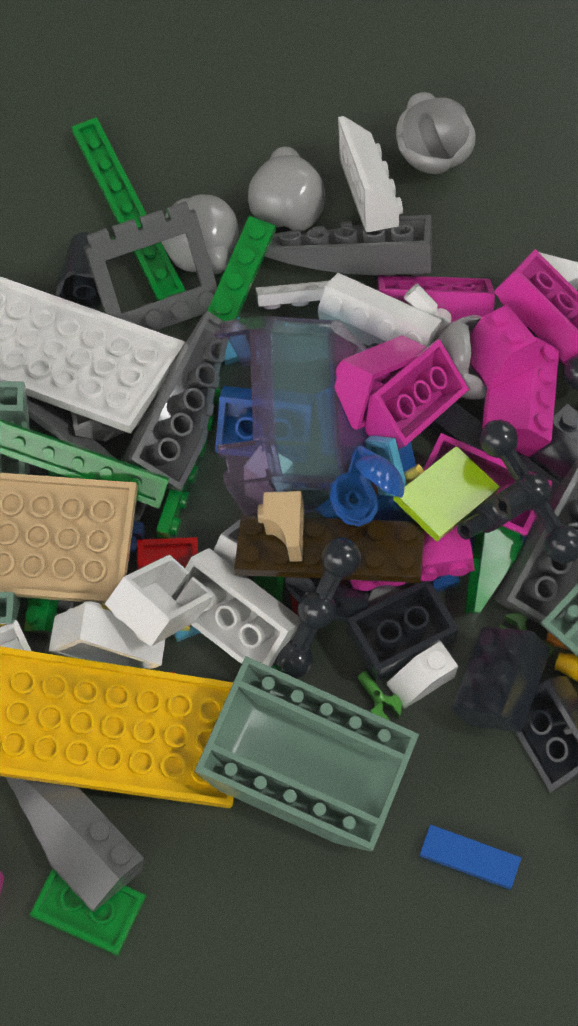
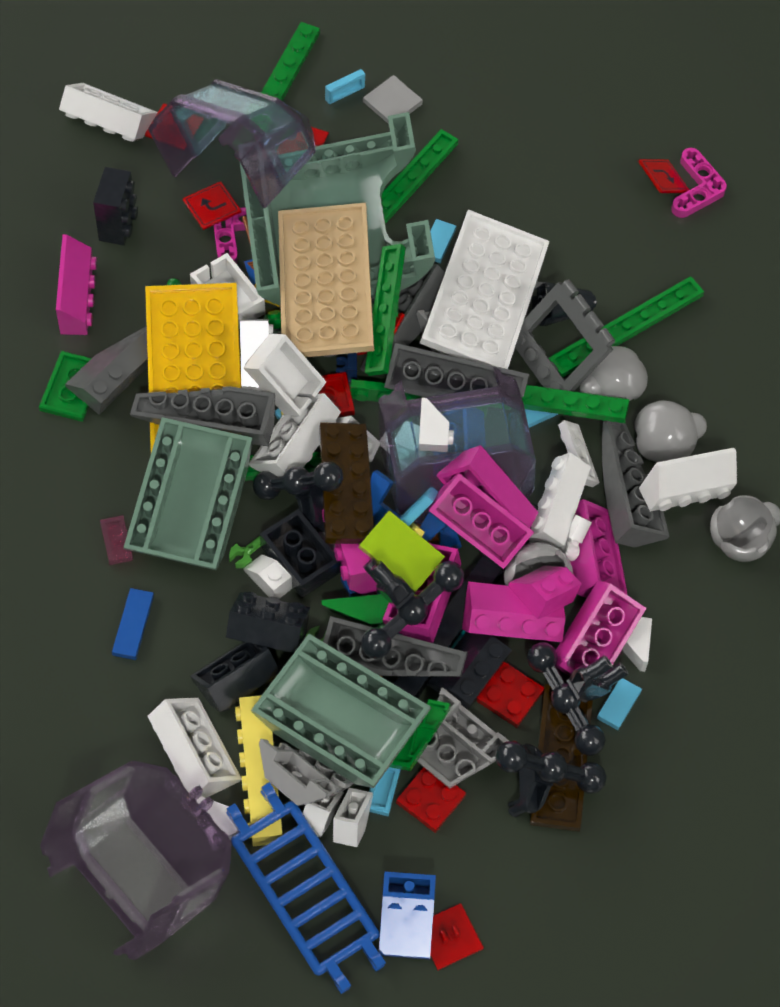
camera: 80 degrees right, 5 degrees down
(186, 709) = (224, 409): none -> dark grey wedge
(284, 518) = (357, 445): tan arch -> none
(305, 413) = (433, 429): none -> white slope
(345, 866) = (114, 536): none -> clear pink plate
(356, 484) = (392, 486): blue animal -> none

